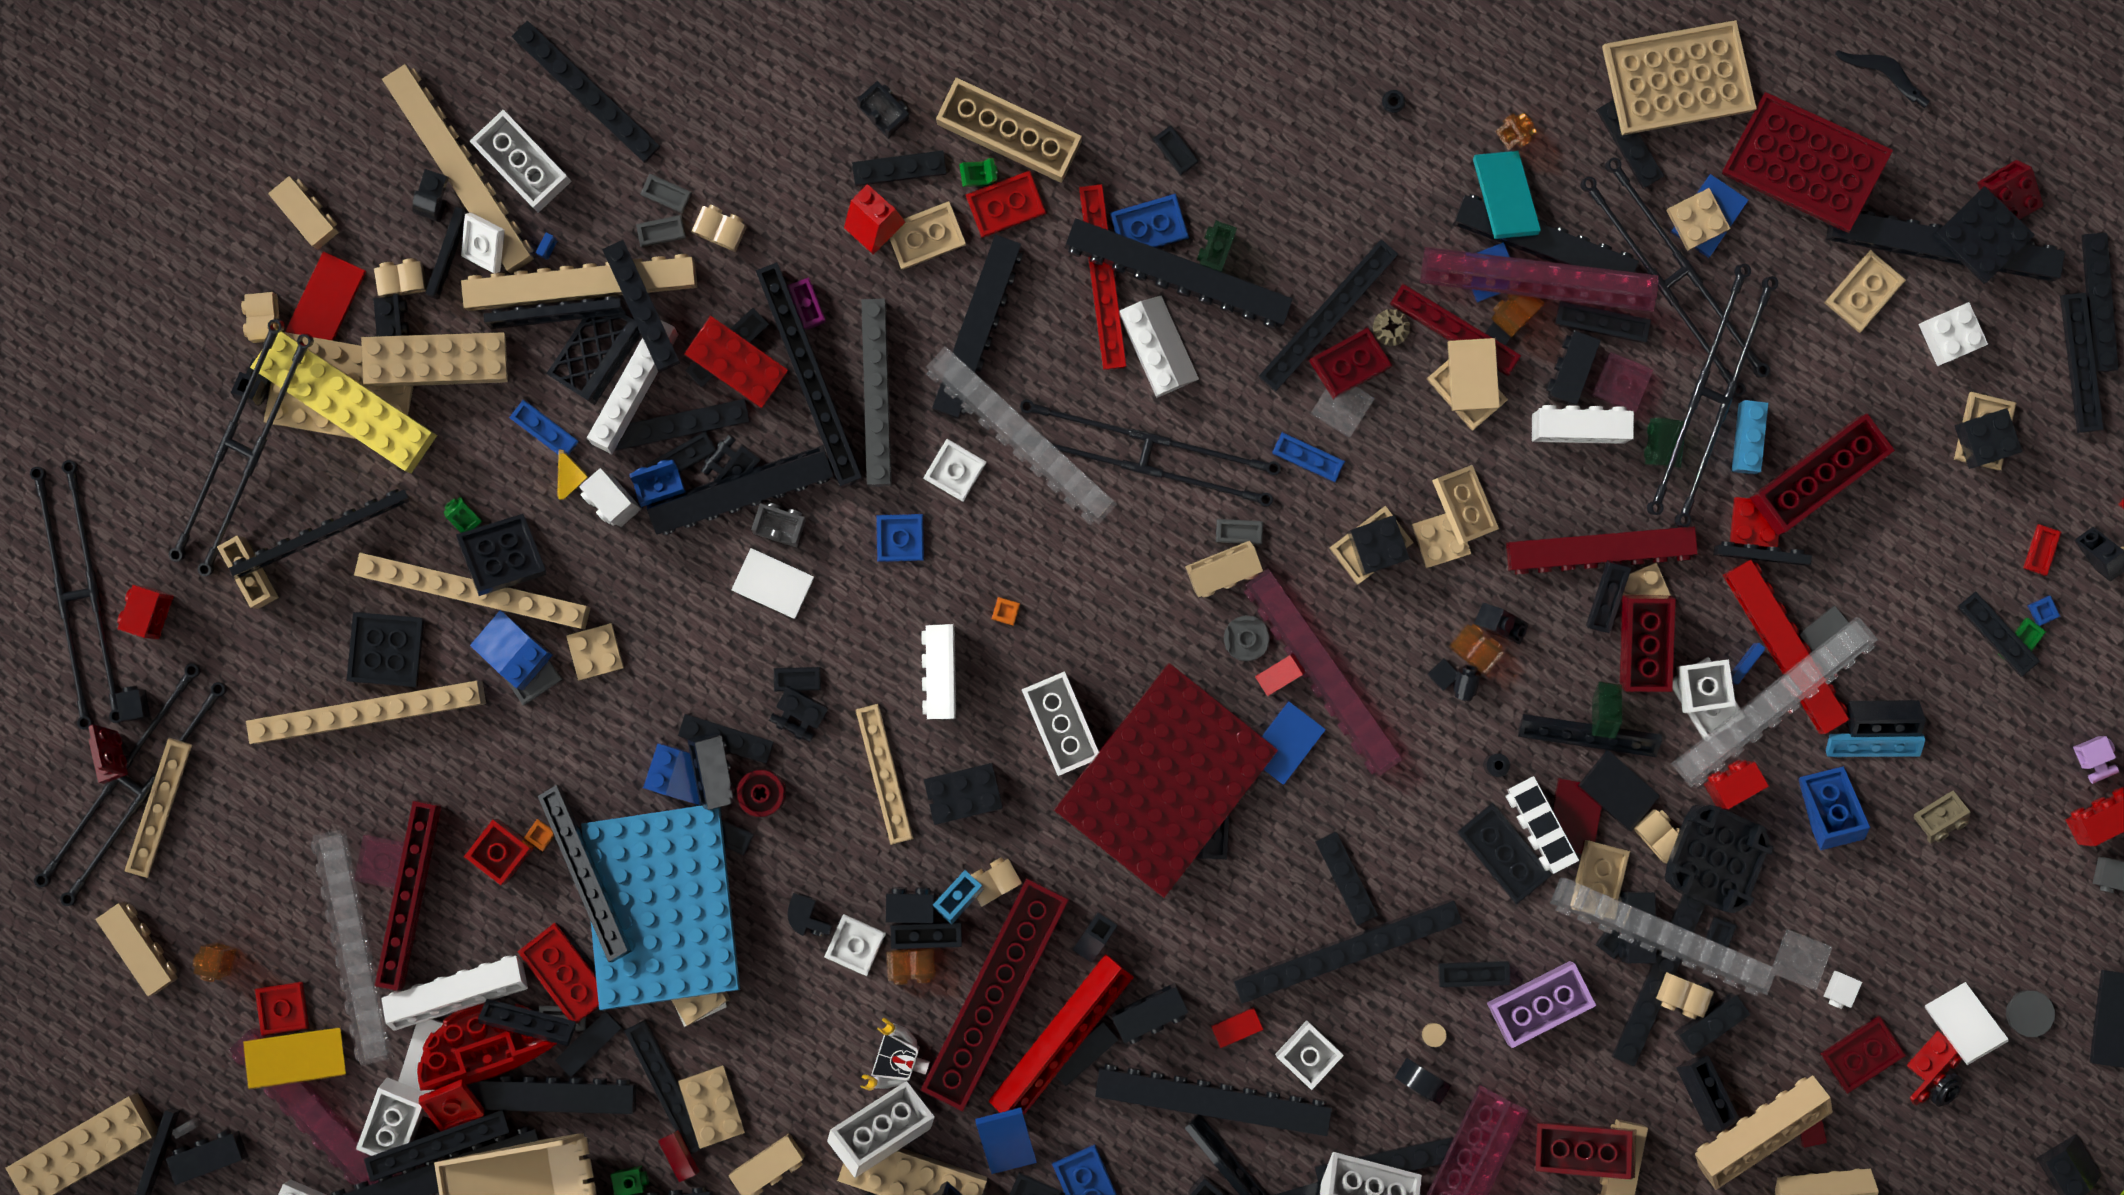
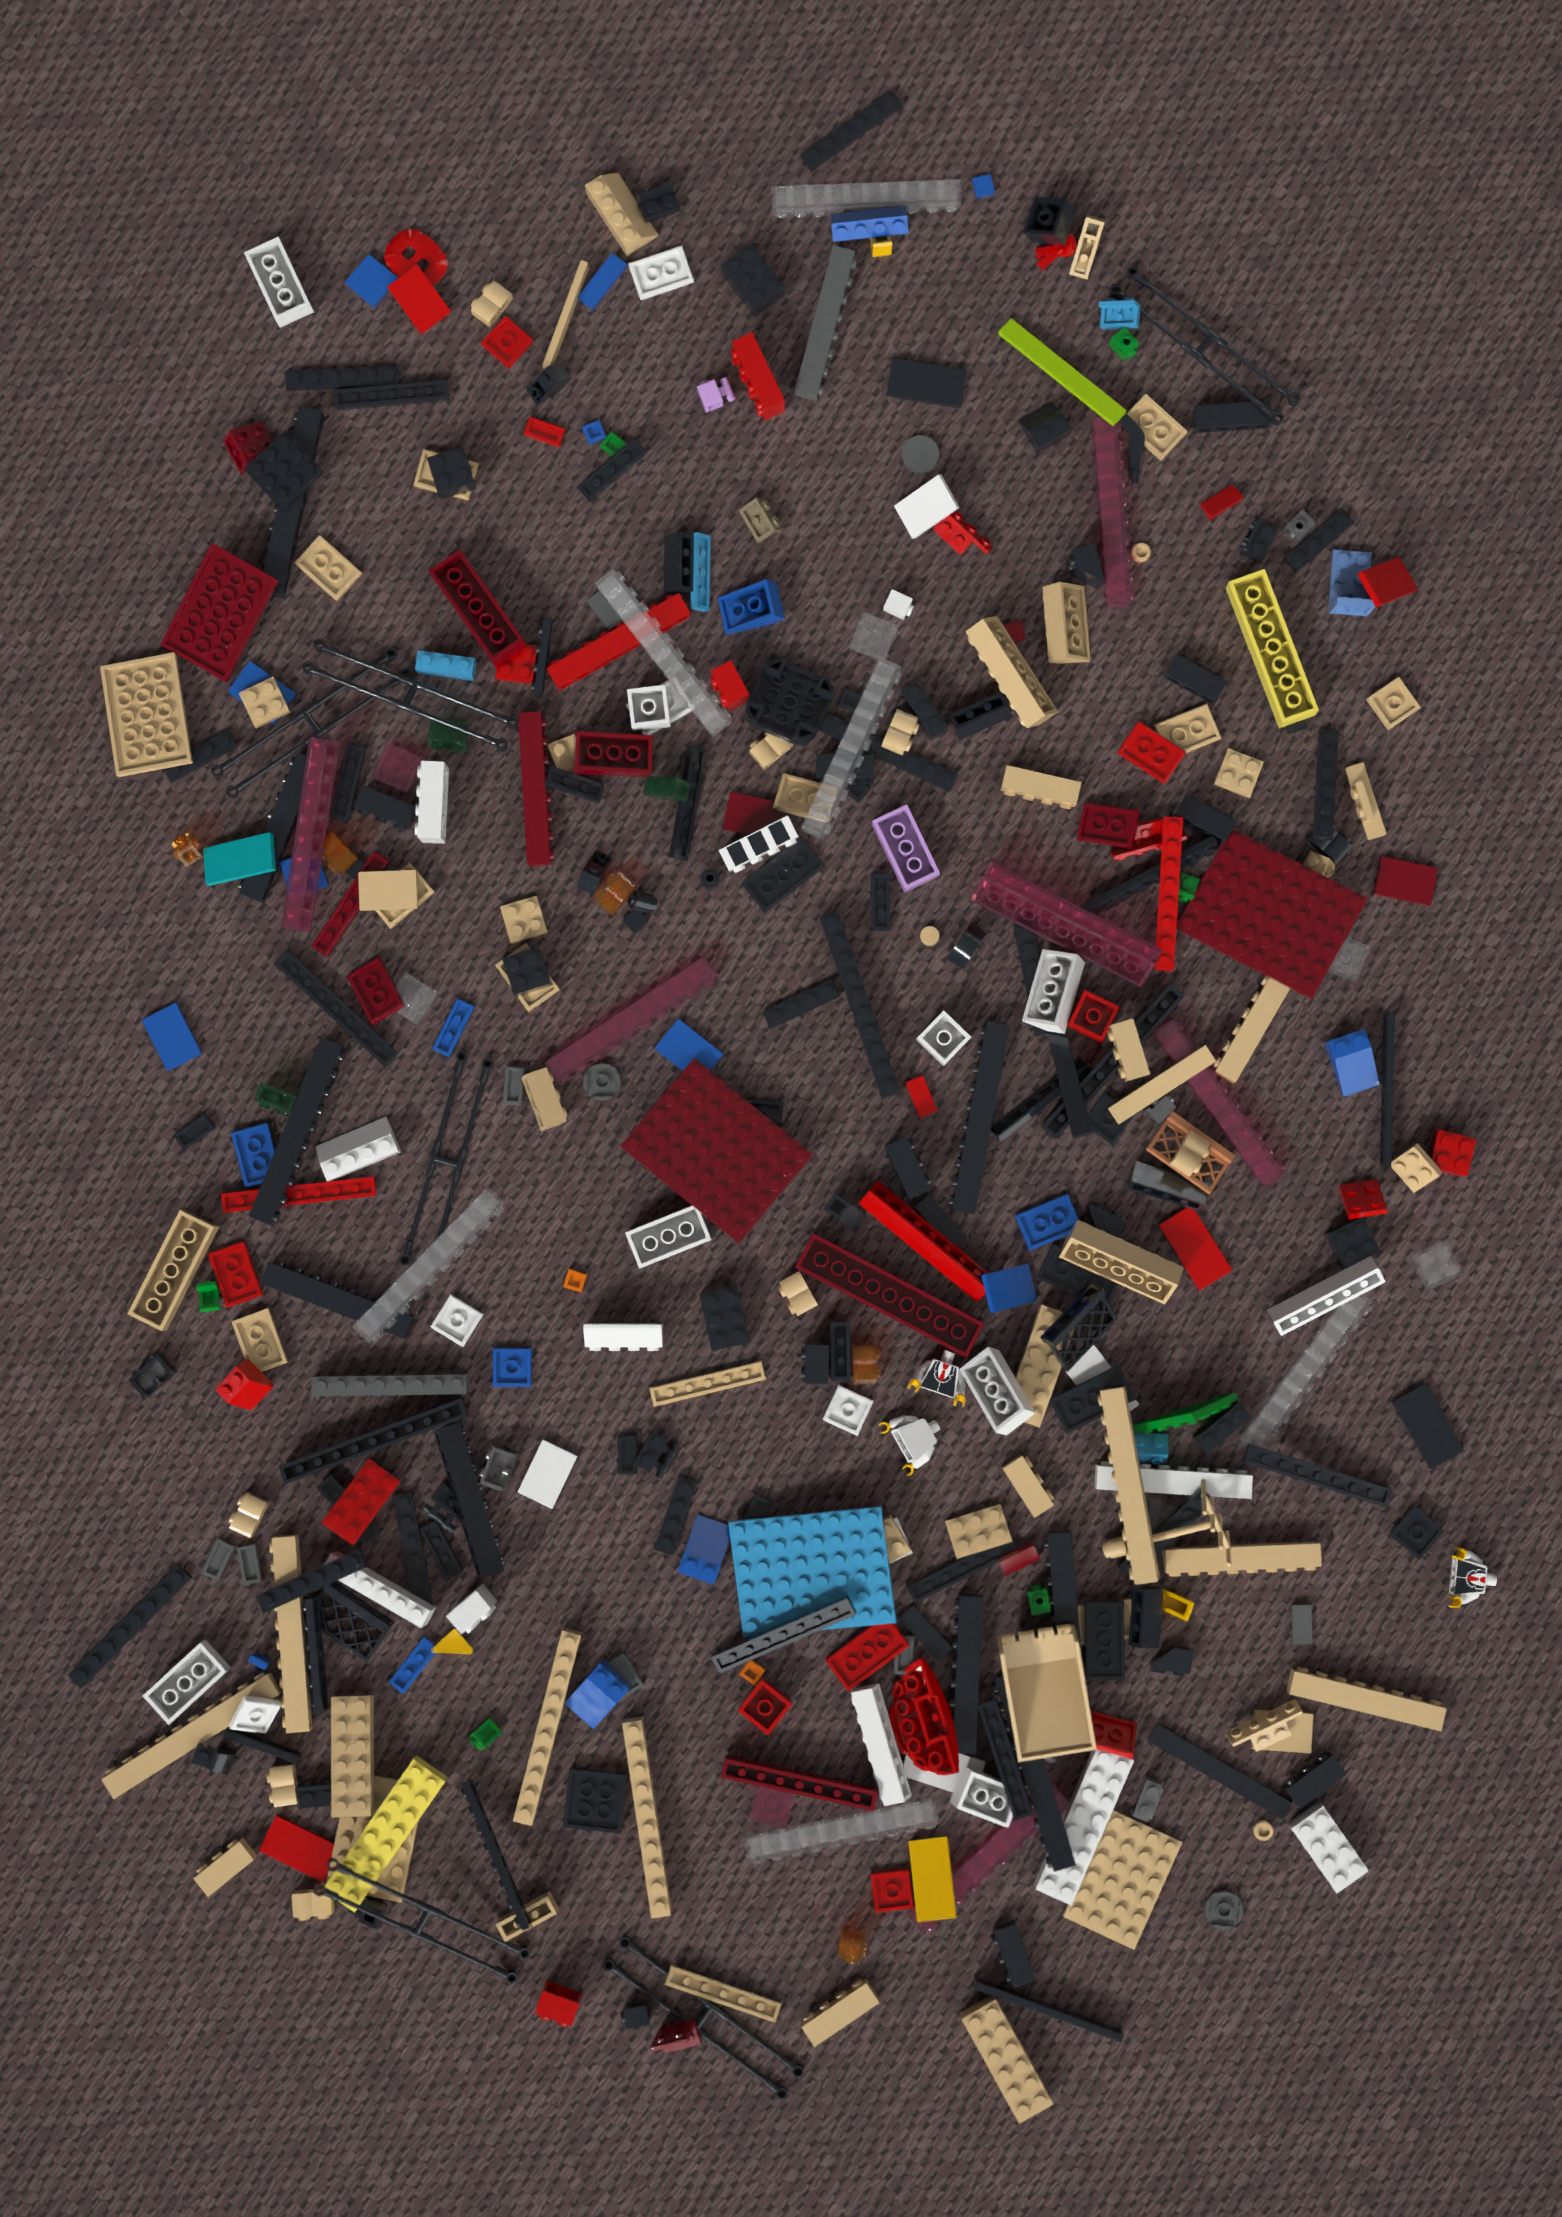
camera: 85 degrees left, 0 degrees up
(63, 596) = (545, 2073): black bar -> none
(187, 1127) = (988, 1969): clear tile -> none
(451, 1105) = (972, 1747): red plate -> none
(501, 554) = (517, 1701): black plate -> none
(527, 1022) = (906, 1683): black plate -> none
(595, 651) = (601, 1623): tan plate -> none
(657, 482) = (460, 1569): blue bracket -> none
(711, 770) = (701, 1527): black brick -> none
(748, 794) = (709, 1486): dark red brick -> none
(800, 916) = (823, 1455): black brick -> none
(806, 303) = (314, 1442): magenta brick -> none
(821, 1027) = (914, 1439): none -> white torso
(899, 168) = (202, 1363): black plate -> none
(958, 897) = (808, 1323): dark azure brick -> none
(1280, 674) = (632, 1054): tile -> none
(1289, 120) = (172, 1037): none -> blue tile
(1385, 336) = (355, 961): dark tan gear -> none
(1393, 94) = (154, 946): black plate -> none
(1465, 504) = (495, 899): tan plate -> none
(1586, 1150) = (1023, 815): dark red brick -> none
(1618, 790) = (733, 780): black tile -> none
(1746, 663) = (631, 674): blue tile -> none
(1862, 1054) = (951, 589): dark red tile -> none
(1891, 69) = (145, 540): black piece -> none
(1947, 1090) = (980, 523): black gear -> none
(1953, 334) = (365, 498): white brick -> none

